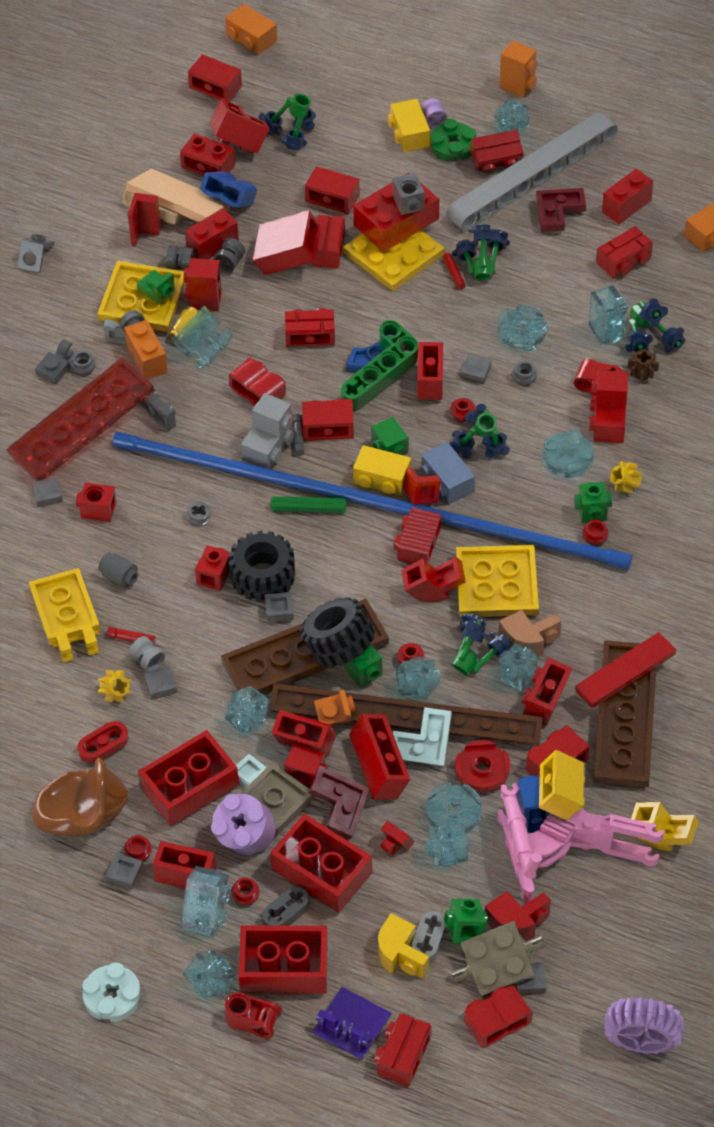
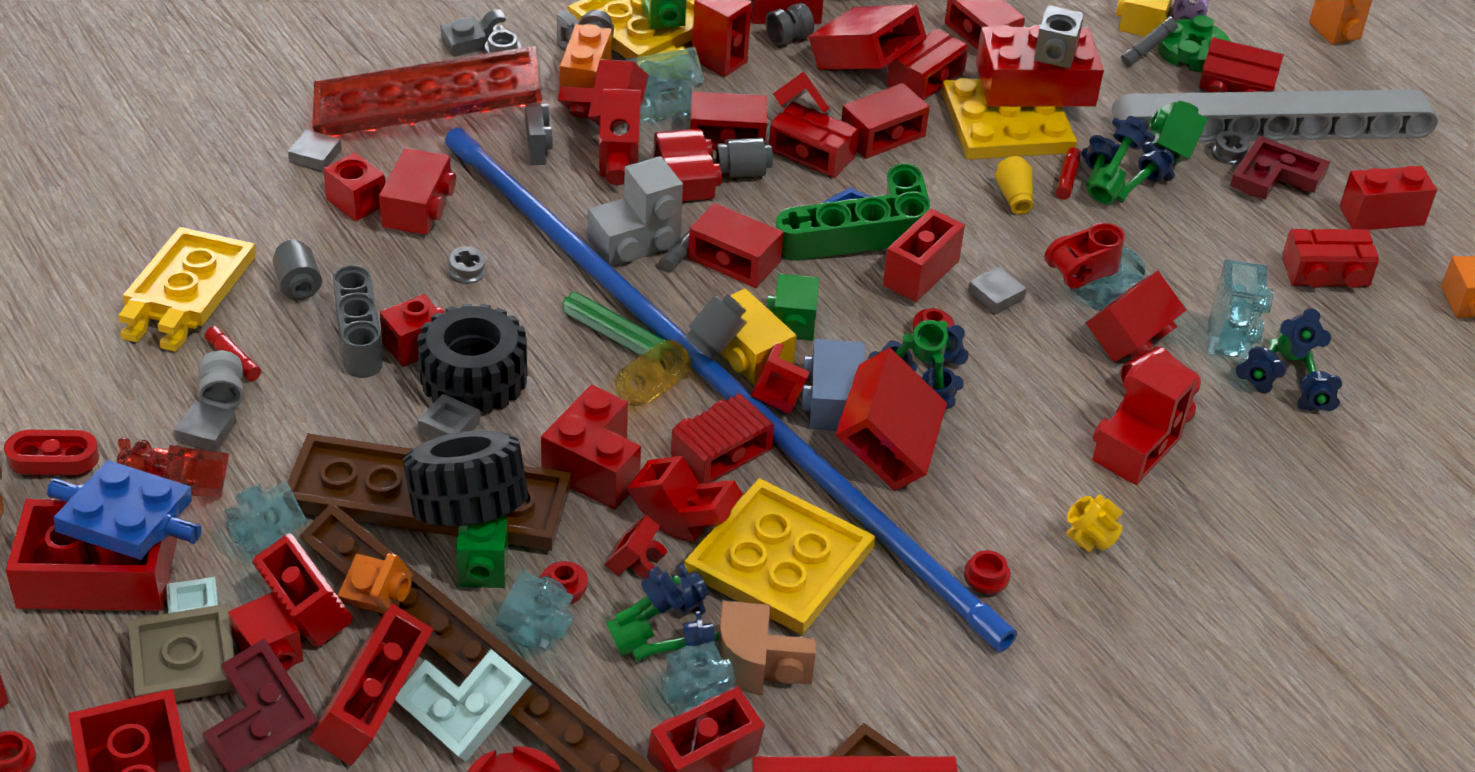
camera: 30 degrees right, 10 degrees down
(114, 685) = (128, 400): yellow gear -> none
(136, 485) = (416, 191): none -> red brick
(177, 714) = (195, 467): none -> clear red piece
(180, 579) = (357, 321): none -> dark grey beam
(187, 364) = (610, 75): none -> red brick
(195, 746) = (123, 510): none -> blue plate
(213, 388) = (614, 149): none -> red torso
(230, 817) = (88, 655): lavender brick -> none
(255, 341) = (729, 116): none -> brick
(280, 303) = (796, 88): none -> red panel
(284, 360) = (744, 157): none -> dark grey brick
(336, 291) = (887, 119): none -> red brick
(353, 520) = (650, 374): none -> clear yellow plate
(364, 581) = (594, 447): none -> red brick
(373, 476) = (717, 325): none -> dark grey brick
(429, 618) = (635, 547): none -> red tile
(432, 155) = (1149, 41): none -> dark grey wheel
(435, 295) = (1016, 183): none -> yellow cone
(496, 213) = (1177, 129): none -> green brick
(496, 478) = (891, 419): none -> red brick
(512, 116) = (1299, 48): clear light blue brick -> none
(513, 323) = (1089, 256): none -> red piece
(520, 210) = (1230, 147): none -> flat silver bush
(524, 372) = (1060, 326): flat silver plate -> none
(560, 347) = (1136, 317): none -> red brick
(568, 442) = (1054, 440): clear light blue plate -> none
(593, 501) = (1015, 527): green brick -> none
(643, 365) = (1244, 399): reddish brown gear -> none

